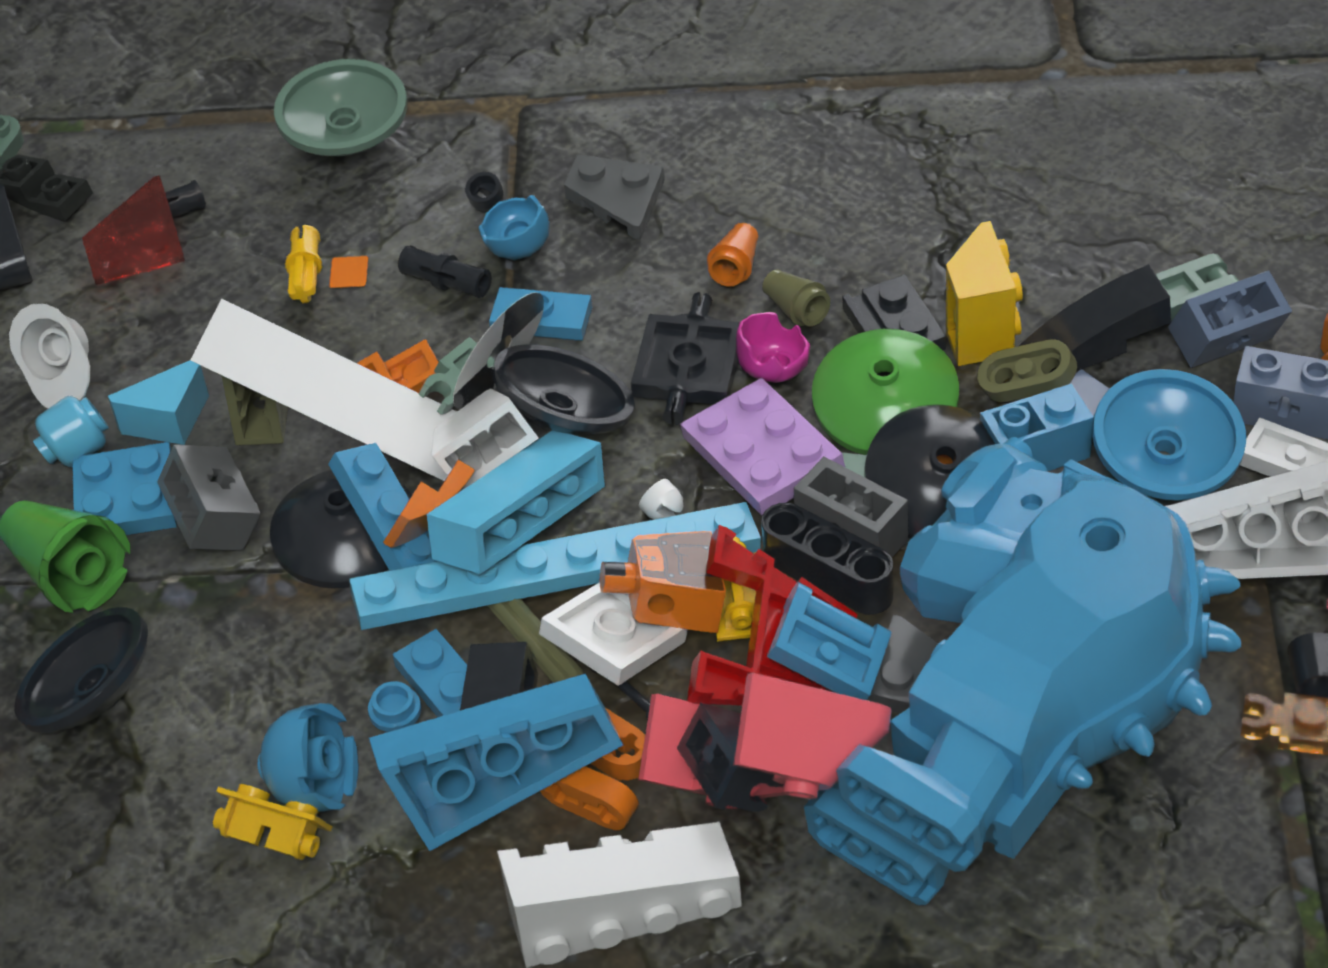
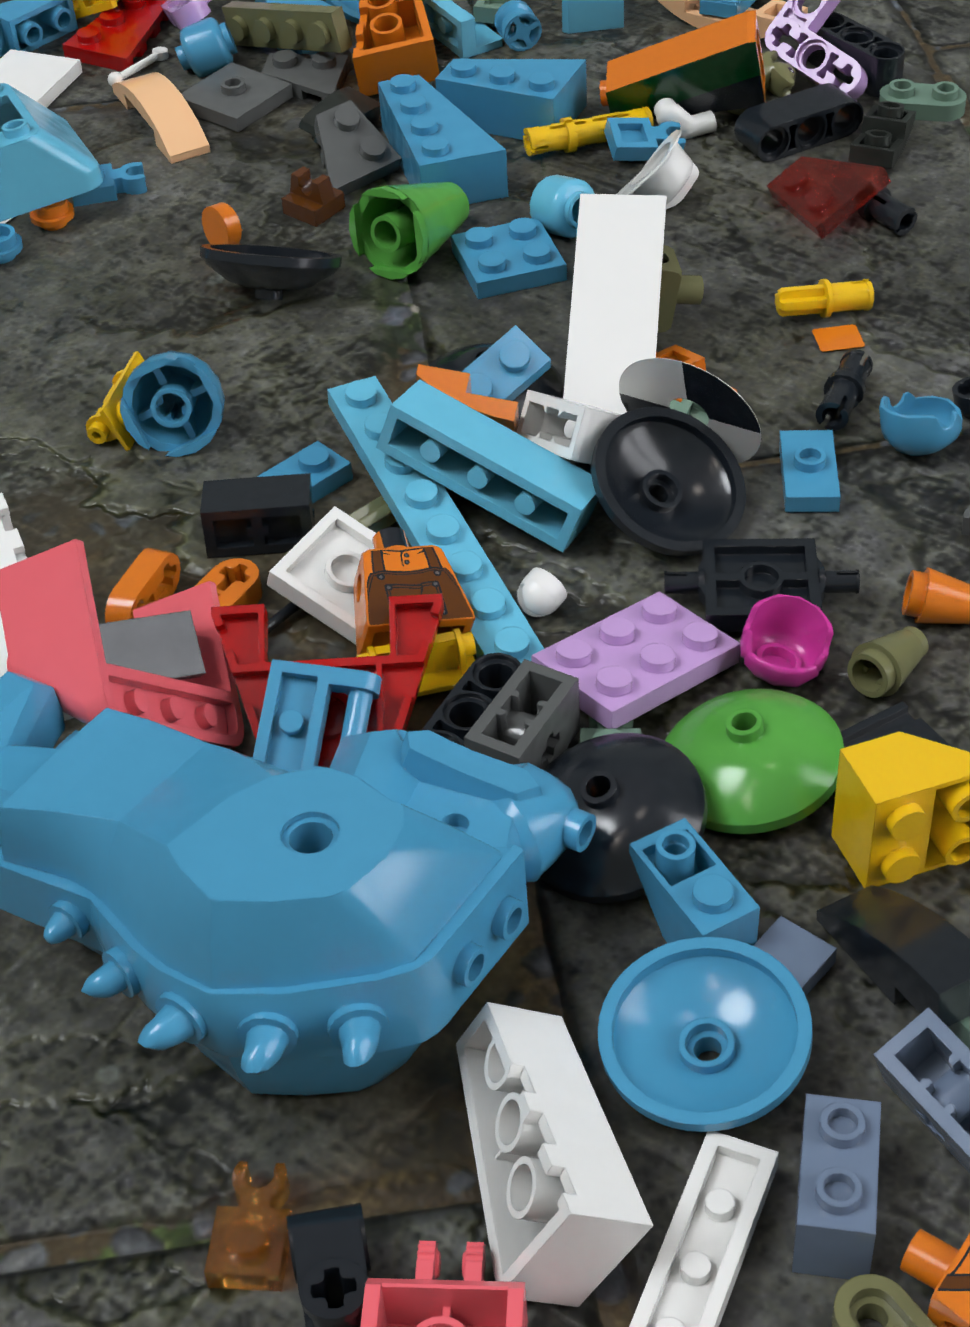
camera: 80 degrees right, 5 degrees down
(208, 497) = (487, 290): dark grey brick -> none
(394, 706) = (255, 453): dark azure plate -> none
(492, 755) = (150, 491): dark azure wedge -> none
(1029, 370) = (804, 883): olive plate -> none

